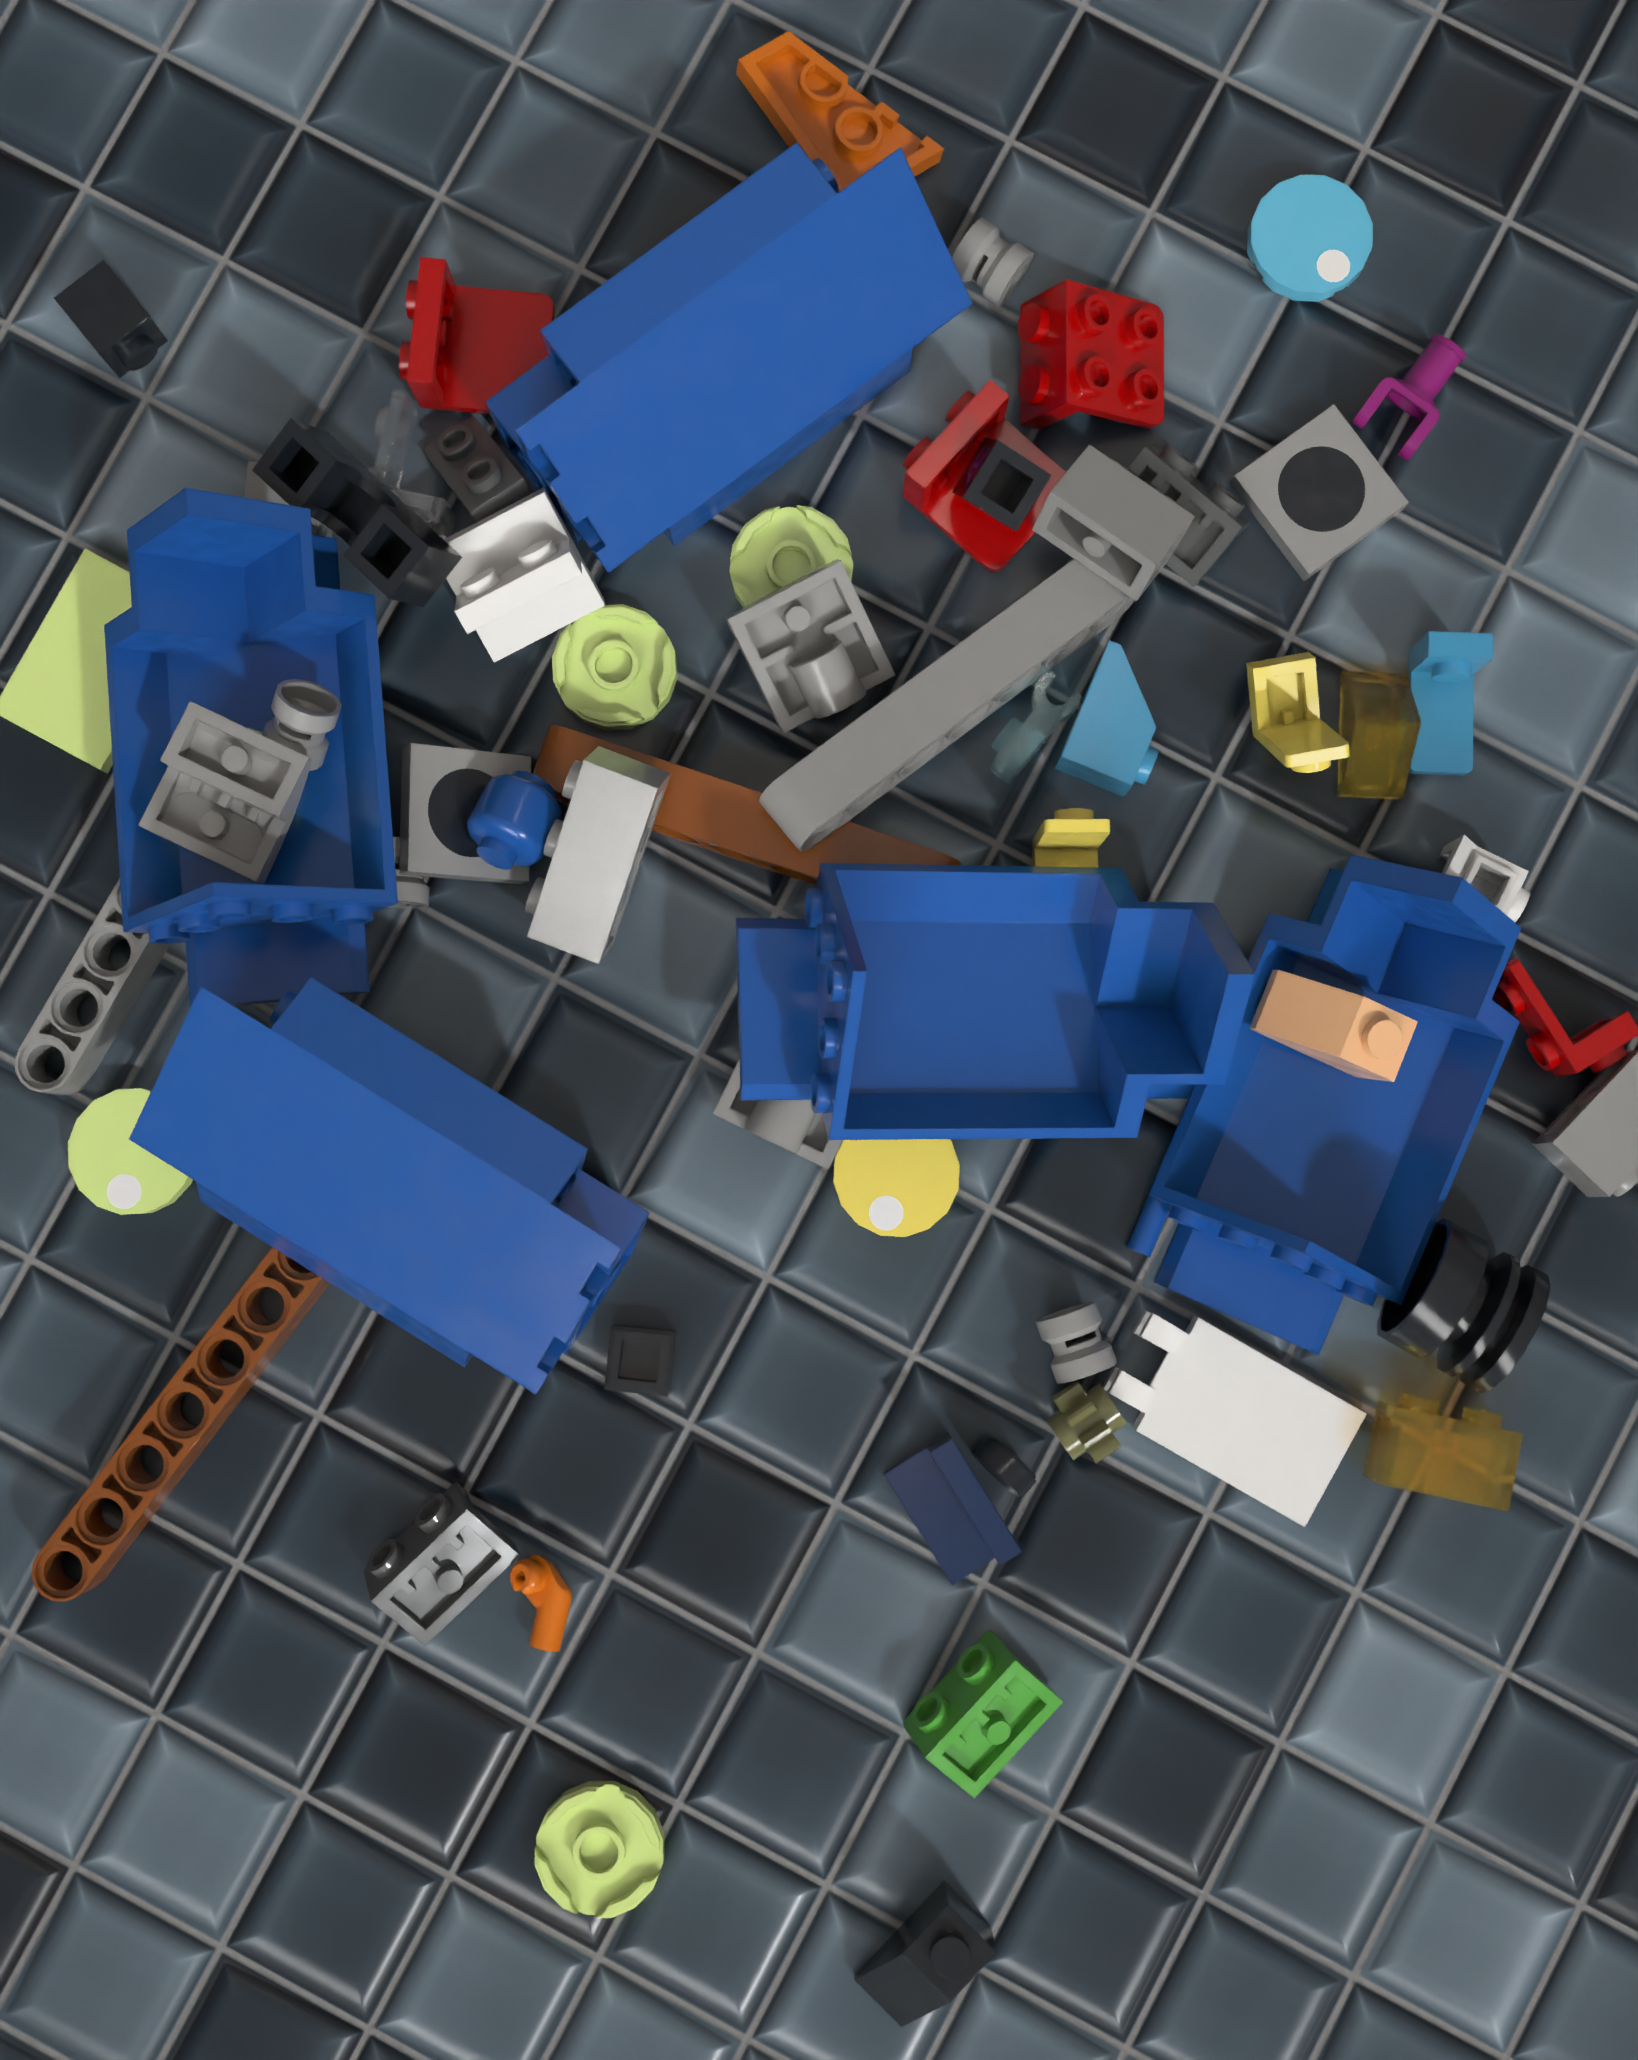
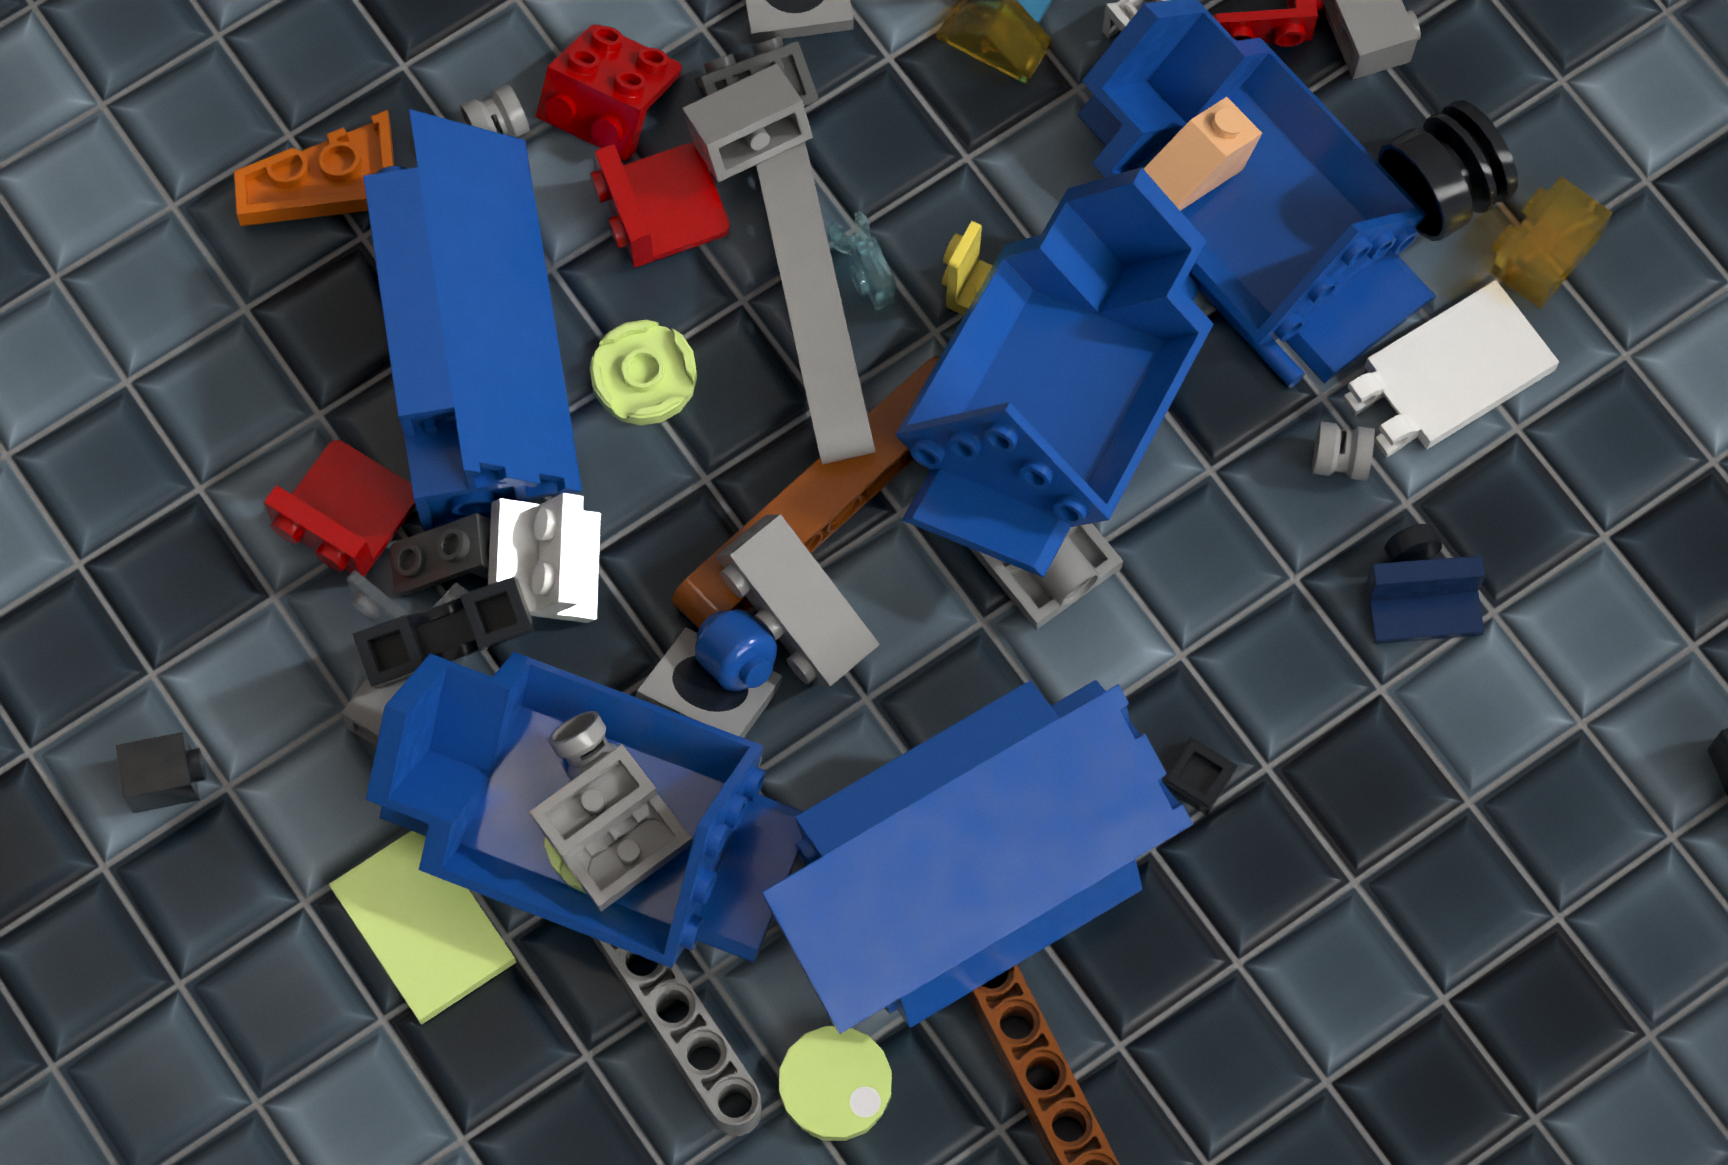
camera: 65 degrees left, 15 degrees down
(437, 1564) = (1283, 998): bracket -> none
(550, 1597) = (1349, 931): orange arm -> none
(599, 1849) = (1565, 989): yellowish green tile -> none
(615, 668) = (649, 536): yellowish green tile -> none
(811, 646) = (718, 380): light grey plate -> none
(896, 1183) = (1155, 522): light yellow tile -> none
(980, 1714) = (1590, 653): bright green bracket -> none
(1001, 483) = (675, 183): black brick -> none
(1086, 1421) = (1406, 470): olive gear -> none
(1111, 729) = (898, 203): dark azure slope -> none
(1288, 713) = (949, 83): light yellow bracket -> none

